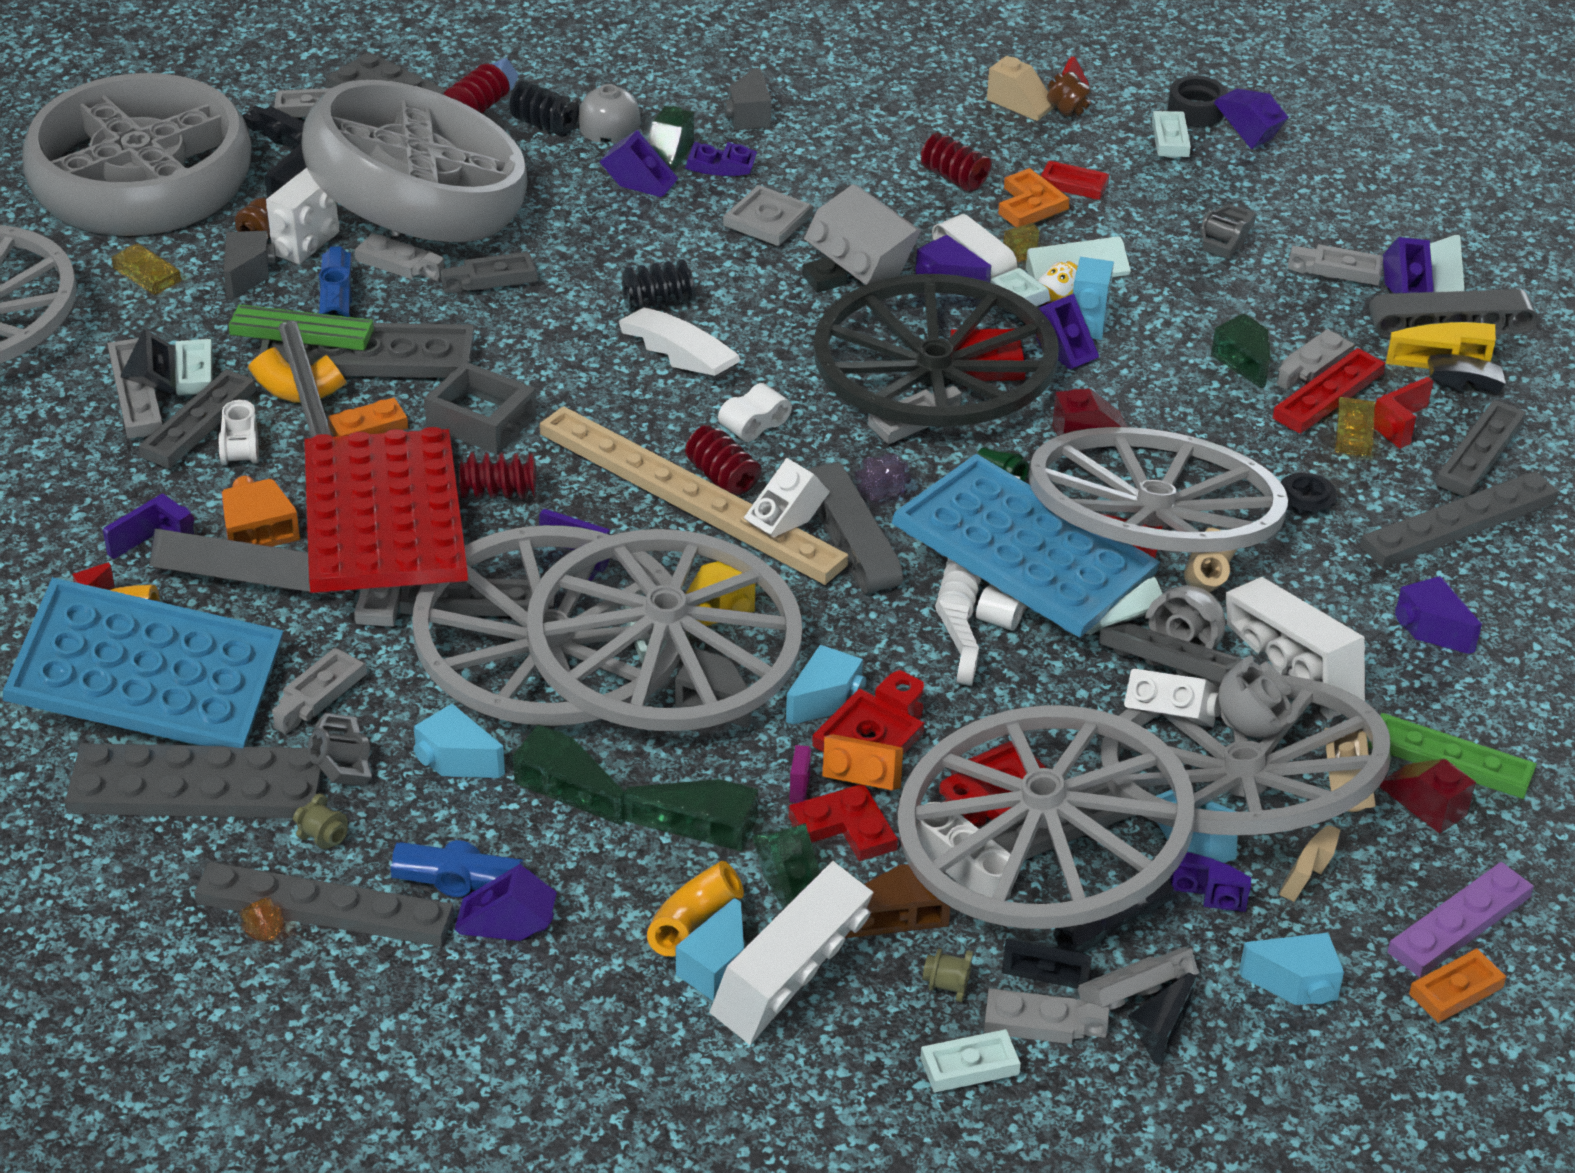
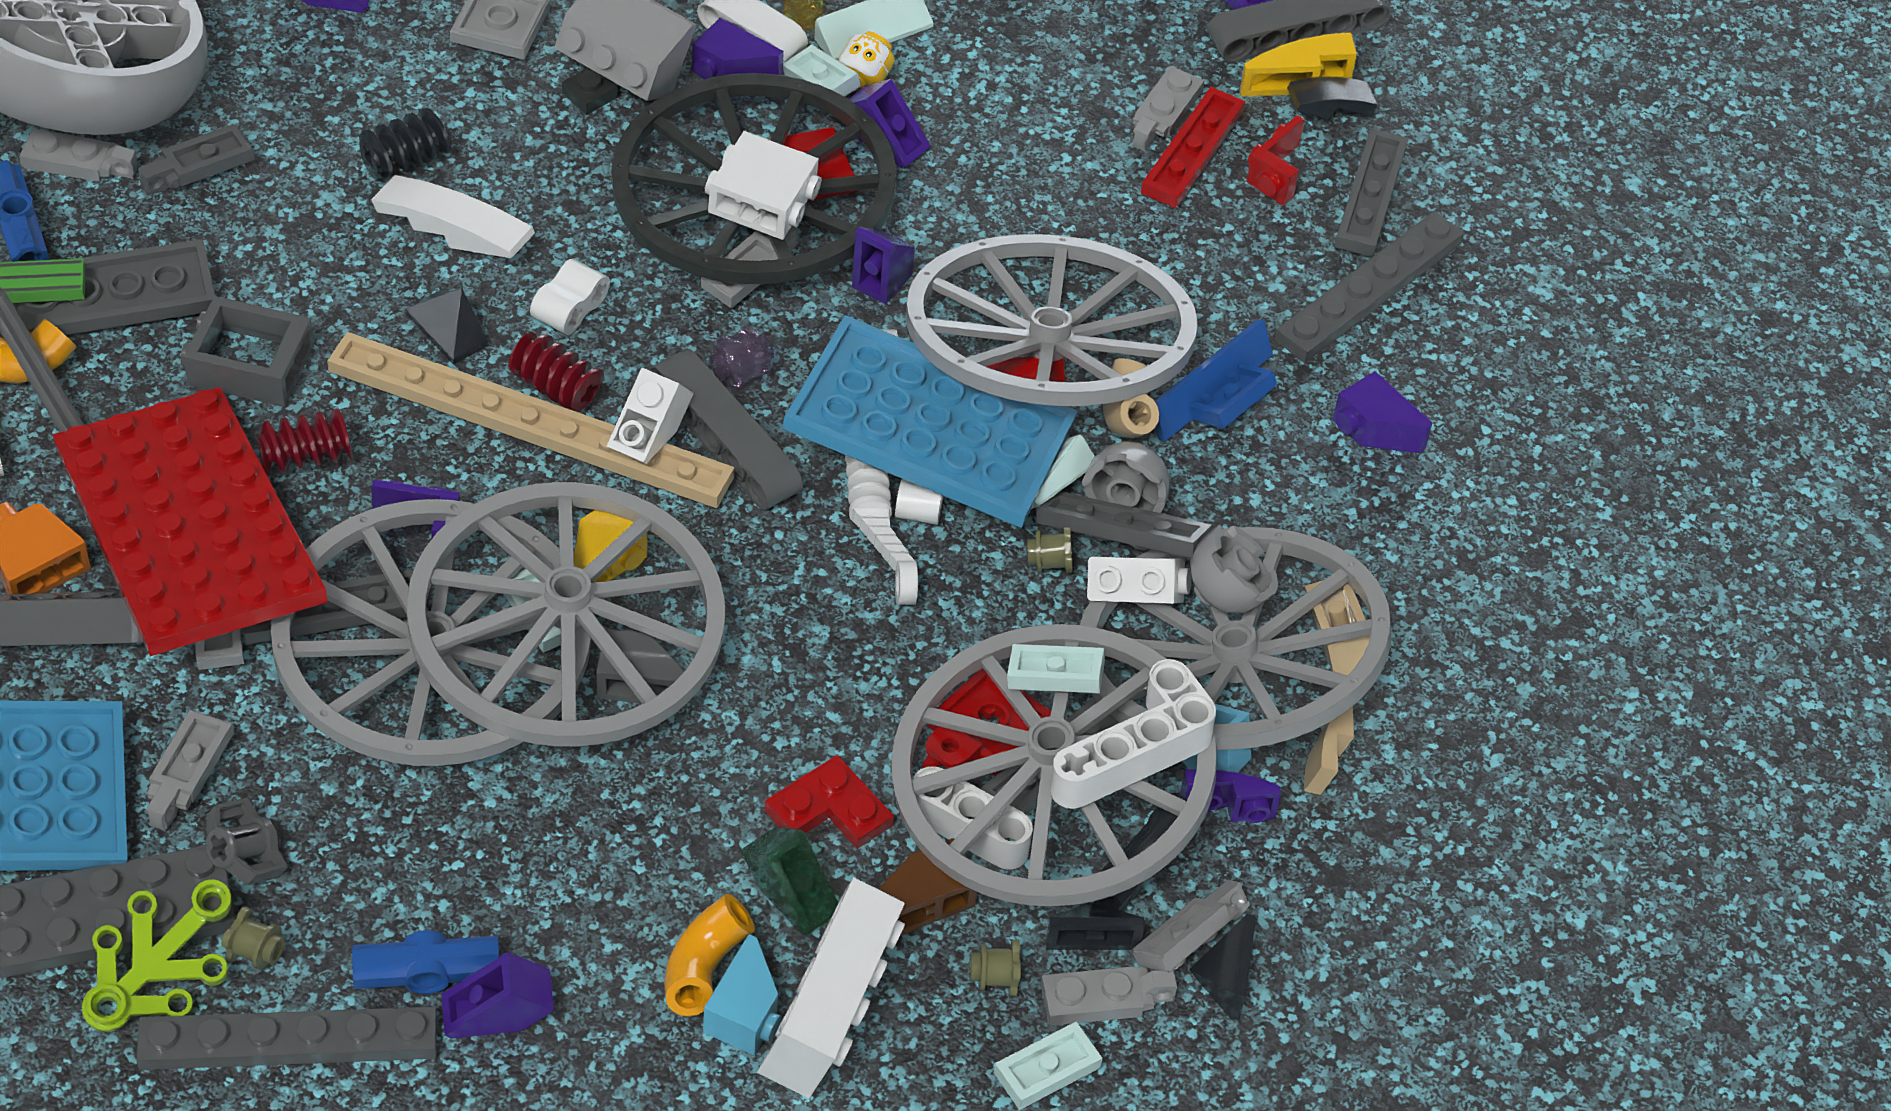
camera: 20 degrees left, 10 degrees up
(235, 821) = (152, 962): none -> lime plant
(262, 919) = (227, 1075): clear orange plate -> none
(371, 418) = (119, 392): orange plate -> none
(458, 746) = (375, 807): medium azure slope -> none
(566, 772) = (505, 813): clear green slope -> none
(650, 417) = (449, 323): none -> slope
(699, 810) = (670, 829): clear green slope -> none
(800, 773) = (766, 759): magenta tile -> none
(824, 685) = (760, 641): medium azure slope -> none
(862, 762) = (832, 732): orange plate -> none
(890, 714) = (835, 663): red plate -> none
(937, 349) = (763, 185): none -> white brick
(1009, 462) = (870, 311): dark green cone -> none
(1023, 426) = (880, 263): none -> dark purple slope
(1066, 735) = (1056, 668): none -> light aqua plate
(1083, 410) = (939, 229): dark red slope -> none
(1092, 292) = (910, 68): medium azure brick -> none
(1104, 664) = (1051, 551): none -> olive brick
(1117, 804) = (1171, 730): none -> white beam
(1243, 348) = (1090, 109): clear green slope -> none
(1294, 968) = (1347, 878): medium azure slope -> none
(1297, 637) = (1246, 477): white wedge -> none
(1301, 564) = (1220, 385): none -> blue bracket
(1322, 493) = (1220, 282): black gear -> none
(1354, 426) = (1232, 189): clear yellow plate -> none
(1432, 792) = (1431, 634): dark red slope -> none
(1457, 985) = (1510, 860): orange plate -> none
(1460, 919) = (1492, 780): medium lavender plate -> none
(1481, 763) = (1444, 584): bright green tile -> none

